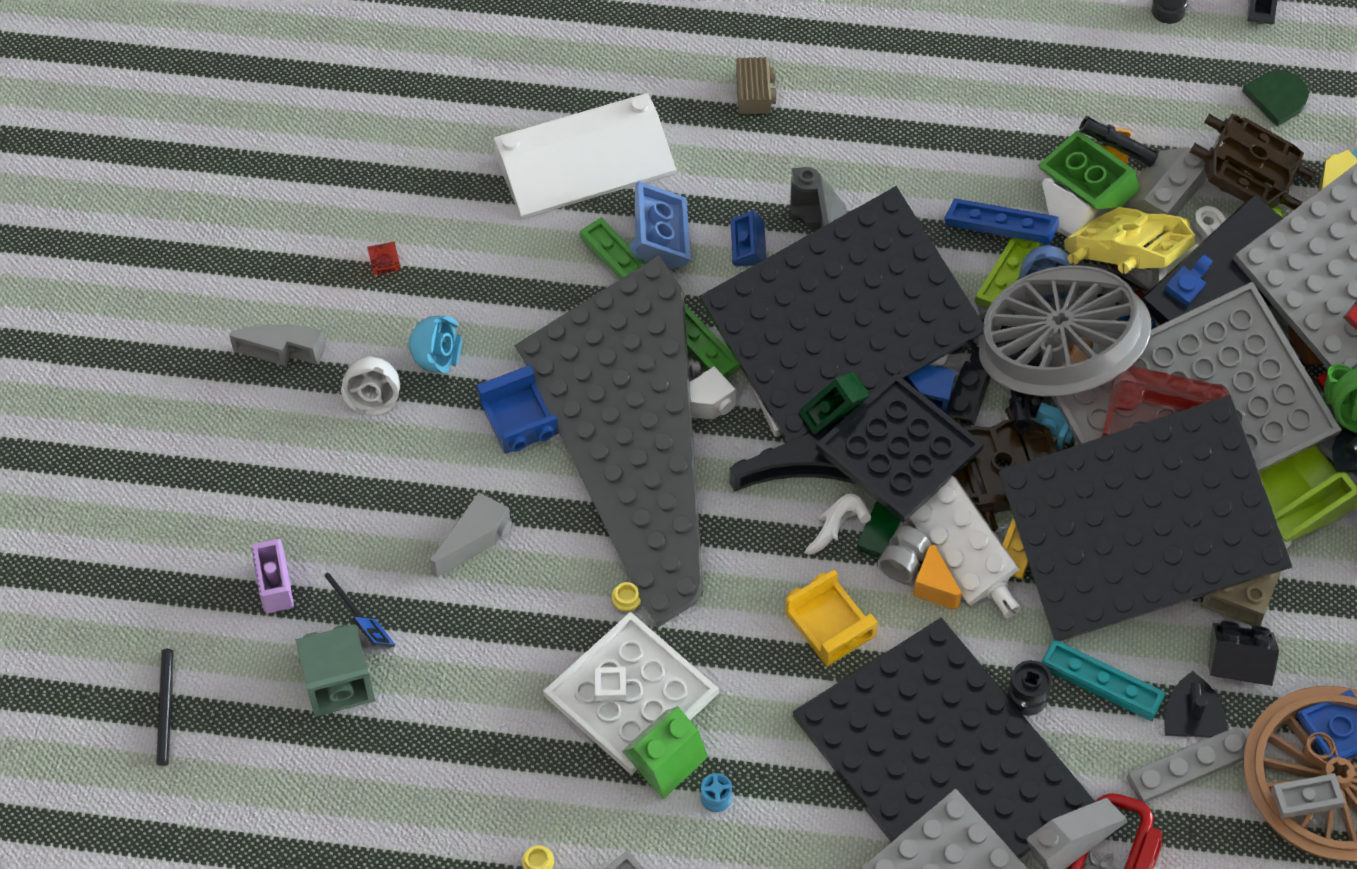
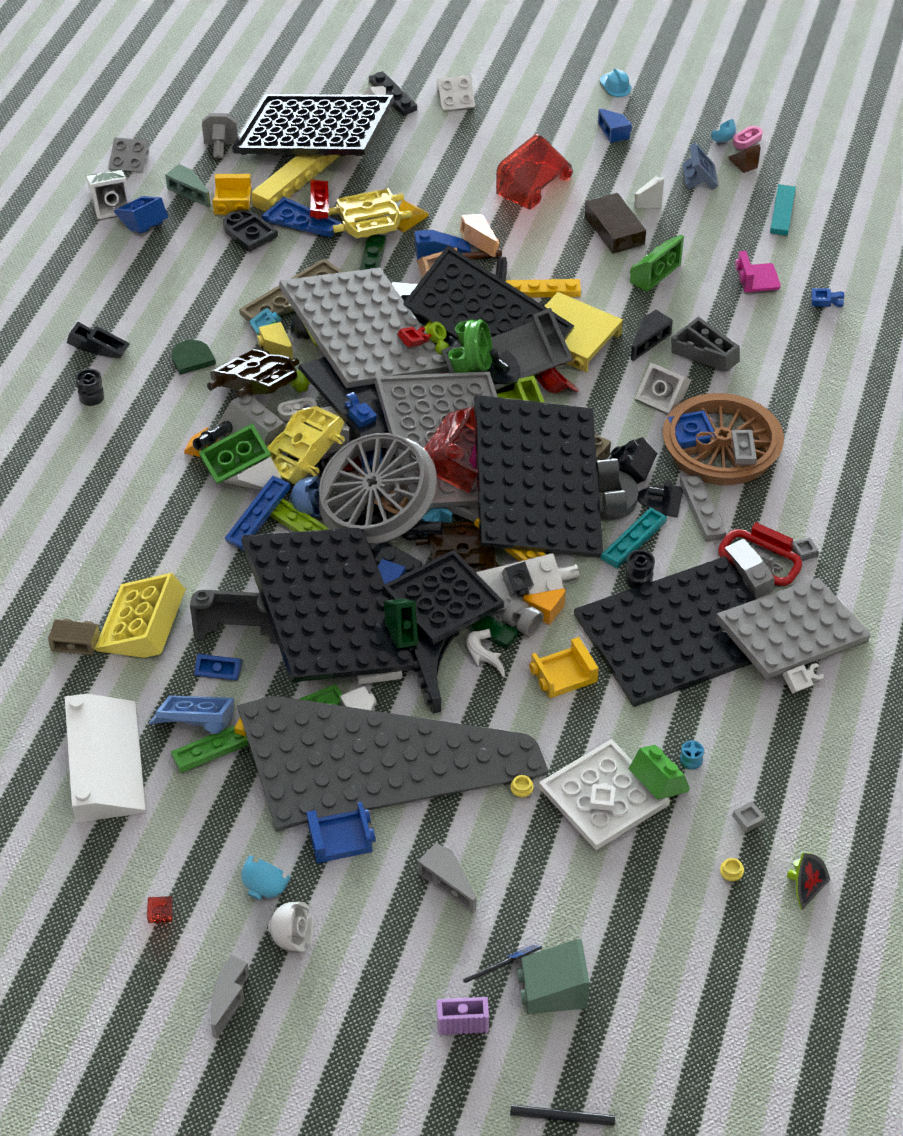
camera: 80 degrees left, 10 degrees down
(801, 140) = (141, 617): none -> light yellow slope
(962, 532) = (518, 570): none -> black brick
(1199, 623) = (615, 503): none -> dark grey piece

